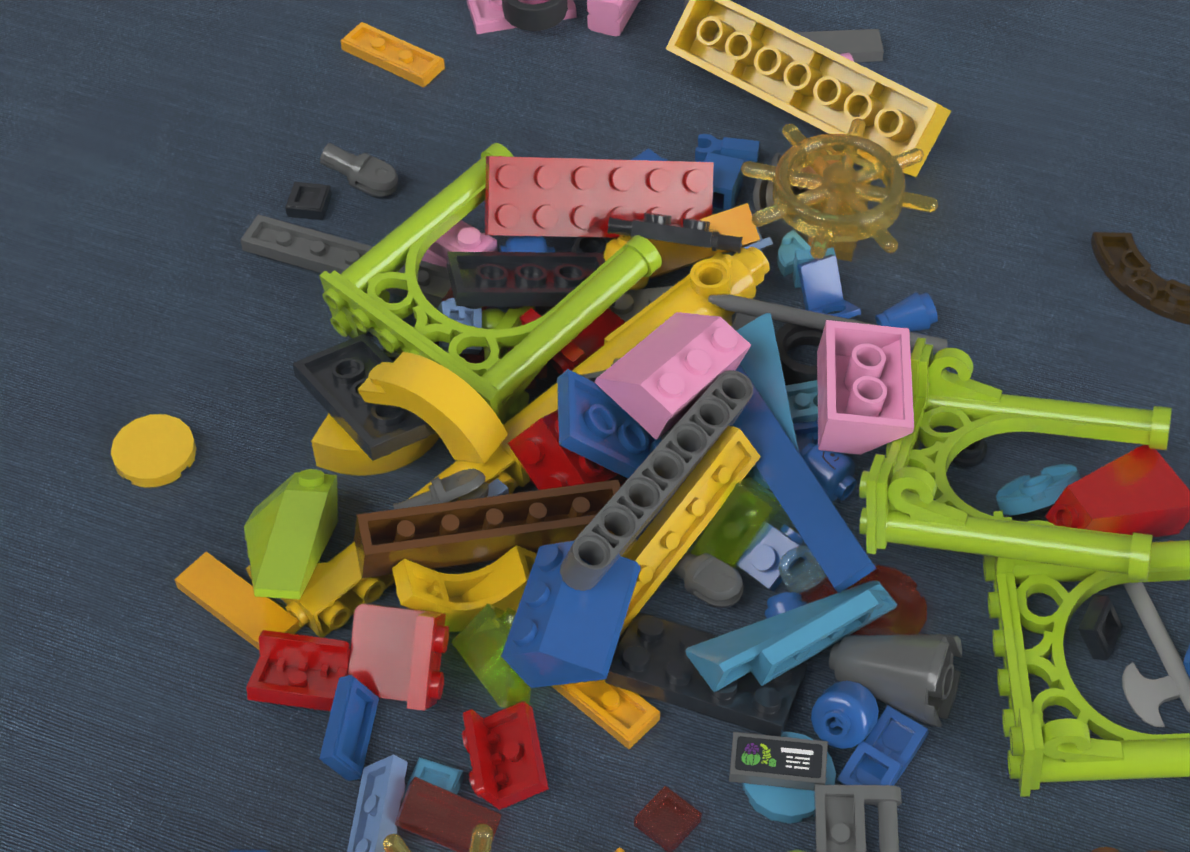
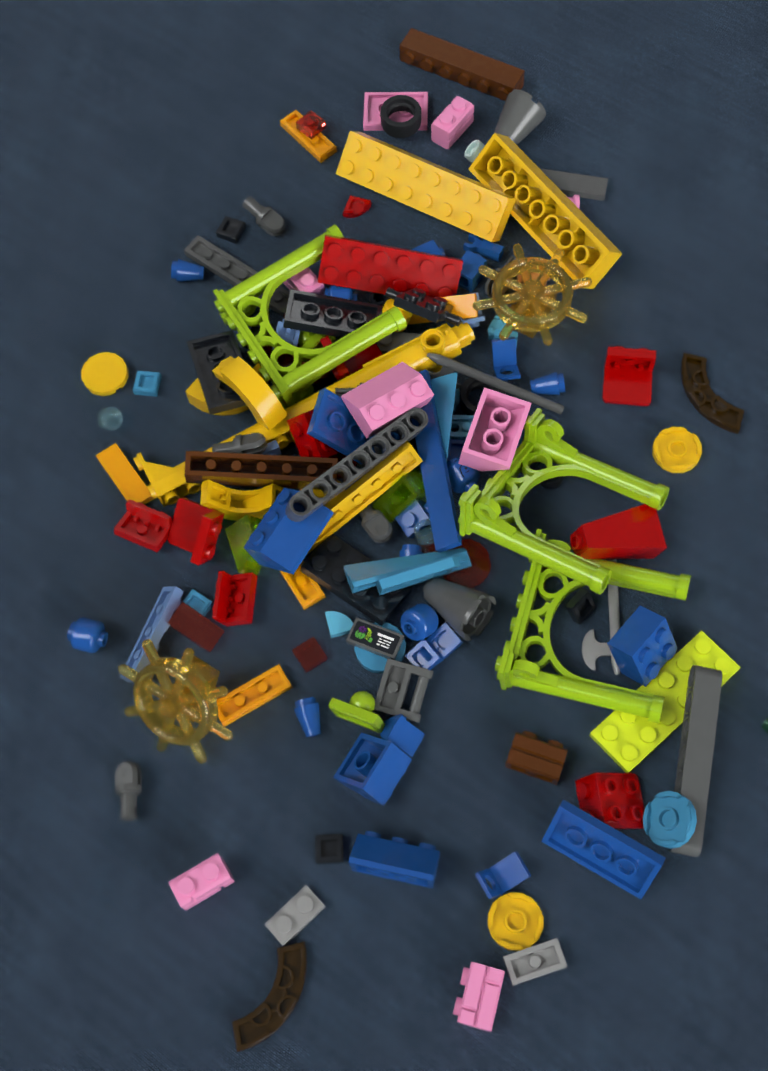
camera: 20 degrees right, 15 degrees up
(184, 515) = (110, 418): none -> clear light blue tile
(233, 450) = (147, 383): none -> dark azure tile
(253, 270) = (186, 271): none -> blue cone
(291, 533) = (157, 447): lime wedge -> none
(349, 728) = (160, 563): blue tile -> none
(394, 35) = (311, 124): none -> clear red plate
(505, 132) = (356, 207): none -> red tile
(609, 79) = (425, 186): none -> yellow brick
(662, 27) = (473, 150): none -> light aqua tile
(701, 755) = (338, 623): none -> medium azure tile
(1025, 276) = (628, 376): none -> red bracket
(1035, 493) = (574, 515): dark azure tile -> none
(1143, 368) = (676, 450): none -> yellow tile

